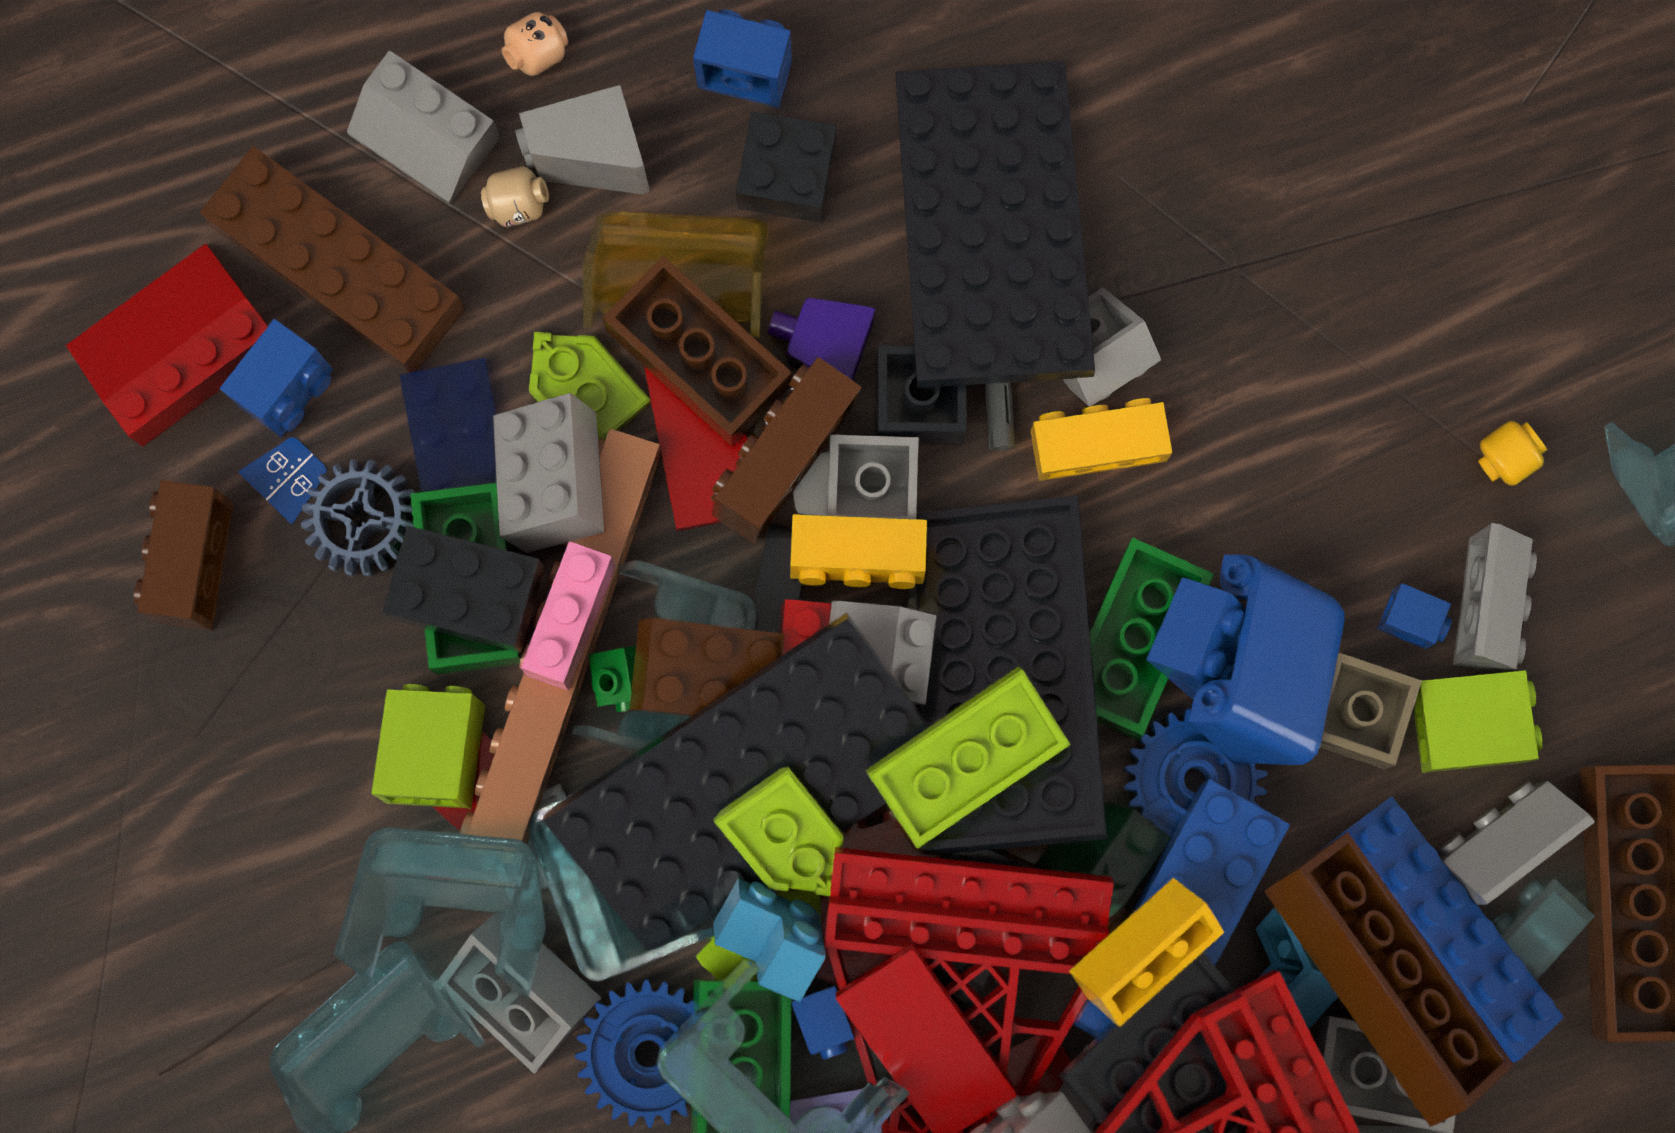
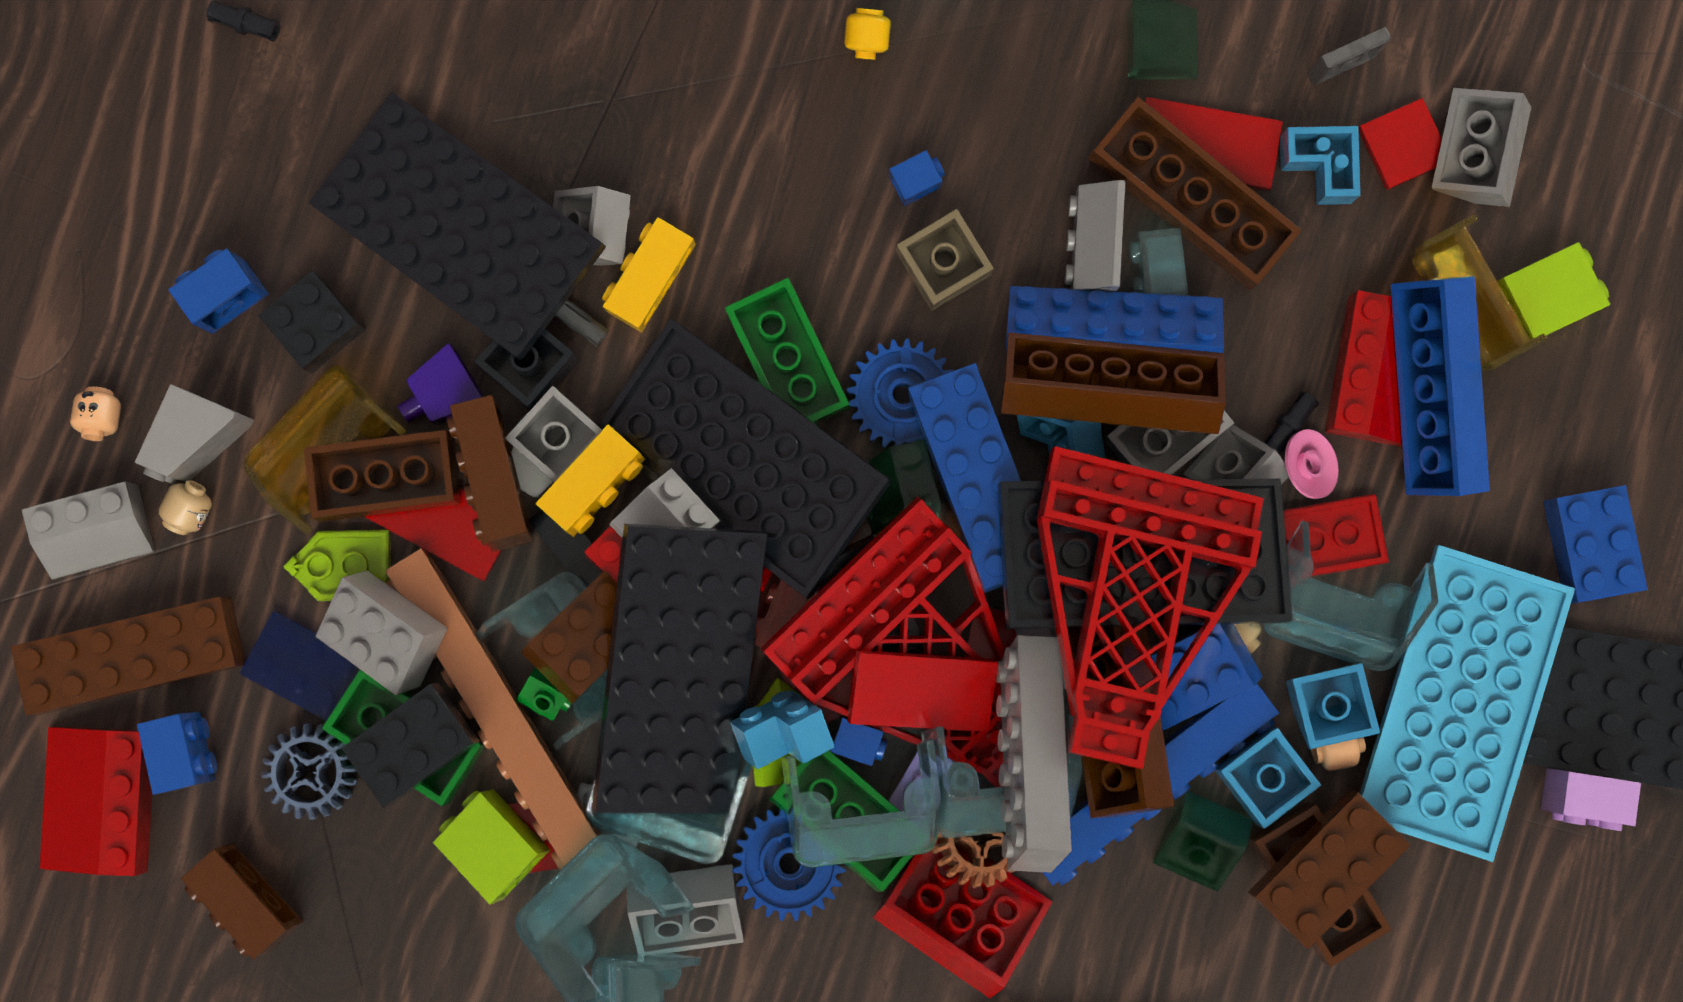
camera: 50 degrees left, 5 degrees up
(285, 476) = (243, 797): blue sticker -> none
(568, 616) = (481, 693): bright pink brick -> none
(783, 834) = (726, 673): lime tile -> none
(968, 757) = (773, 522): lime tile -> none
(1146, 951) = (978, 514): yellow brick -> none
(1198, 636) = (831, 317): blue brick -> none
(1281, 668) = (879, 287): blue windscreen -> none
(1476, 721) = (1009, 196): lime brick -> none
(1494, 600) = (946, 121): light grey slope -> none

